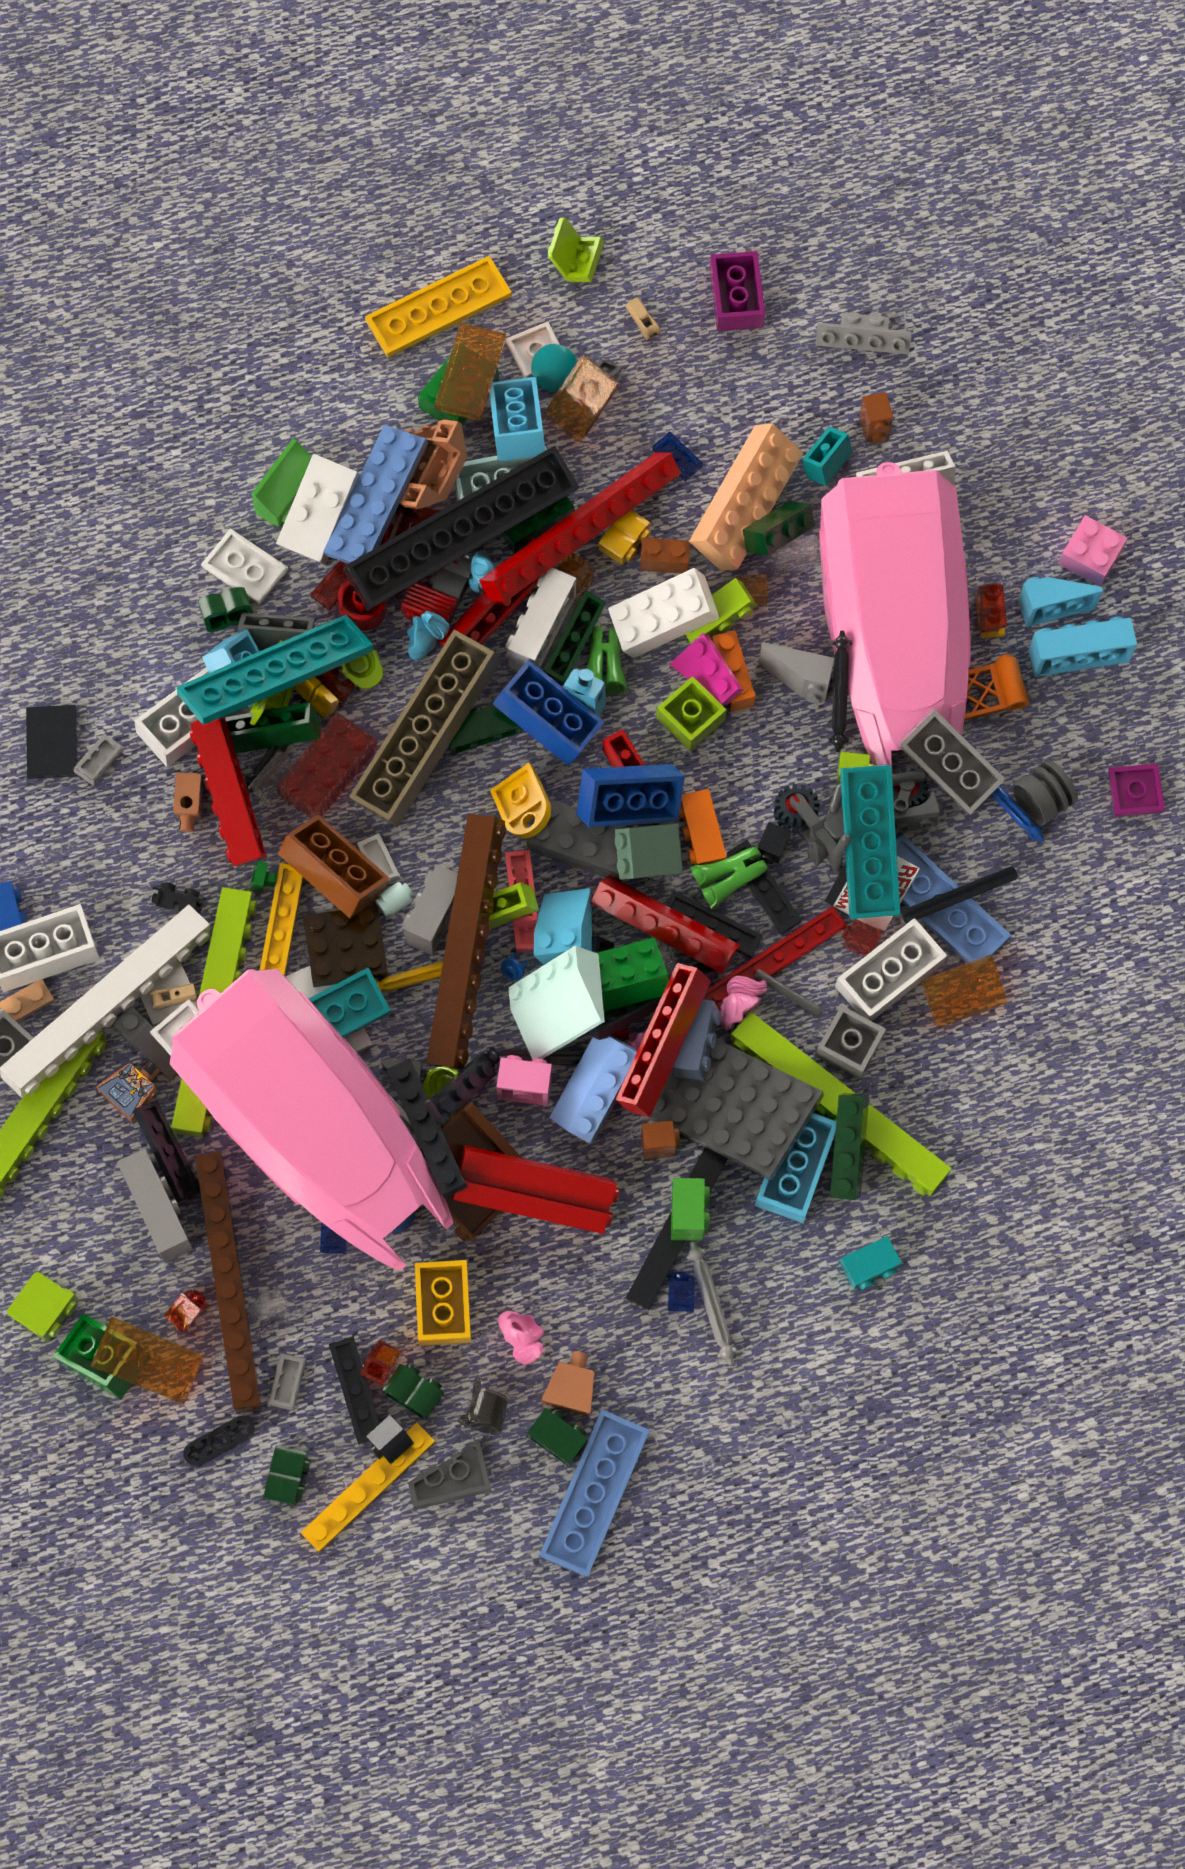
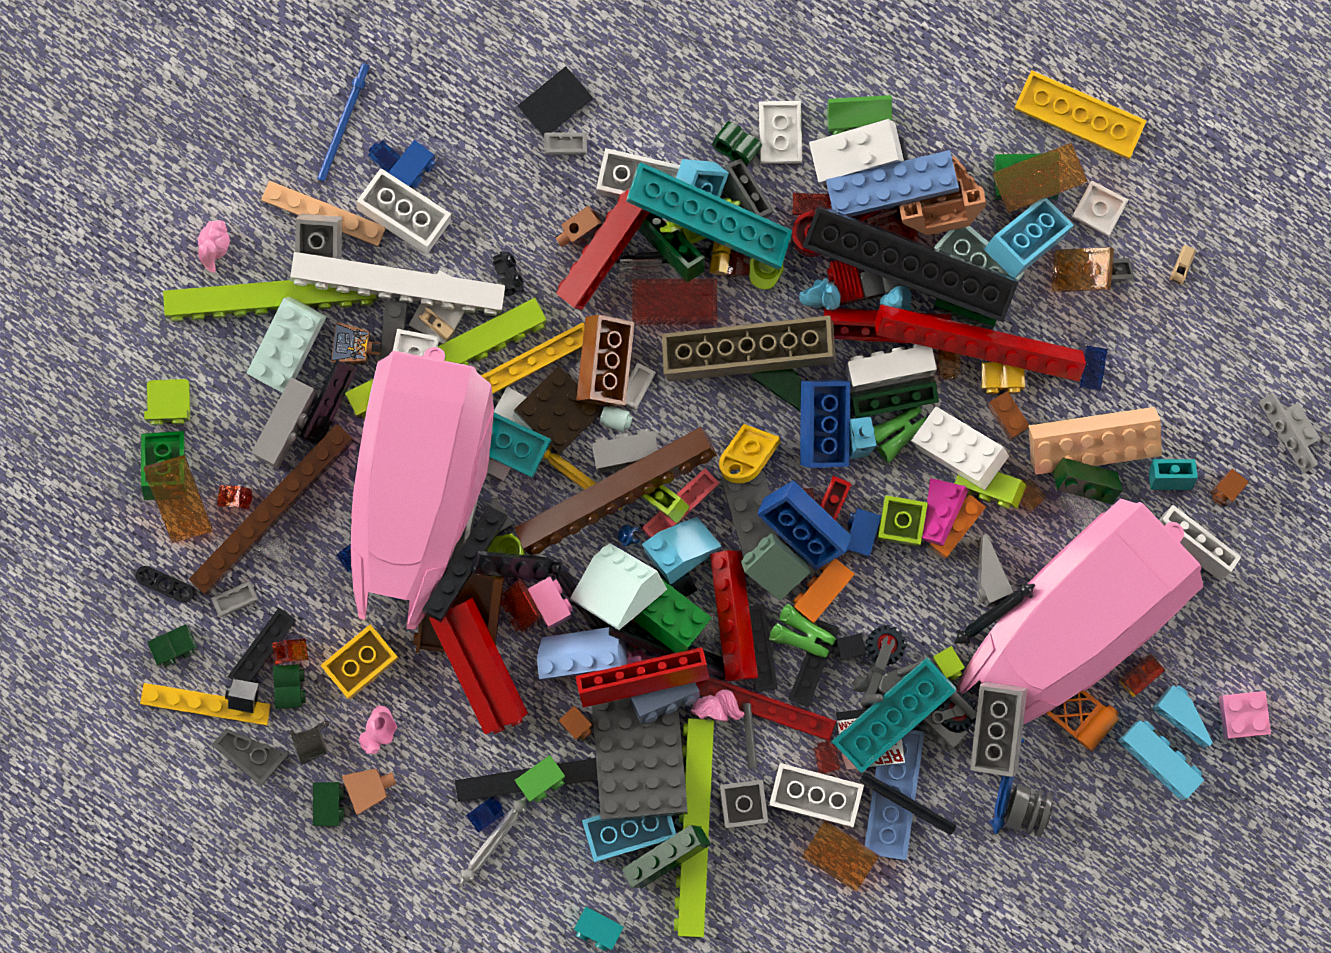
camera: 55 degrees right, 10 degrees up
(80, 1148) = (286, 343): none -> light aqua brick
(261, 877) = (564, 317): green tile -> none
(509, 1106) = (522, 607): none -> clear red slope
(552, 366) = (1094, 230): teal dish -> none
(574, 255) = (1194, 179): lime bracket -> none
(594, 1493) = (308, 856): medium blue plate -> none
(671, 749) = (863, 532): none -> blue brick
(737, 291) = (1254, 316): magenta brick -> none
(1136, 790) = (1083, 872): magenta plate -> none

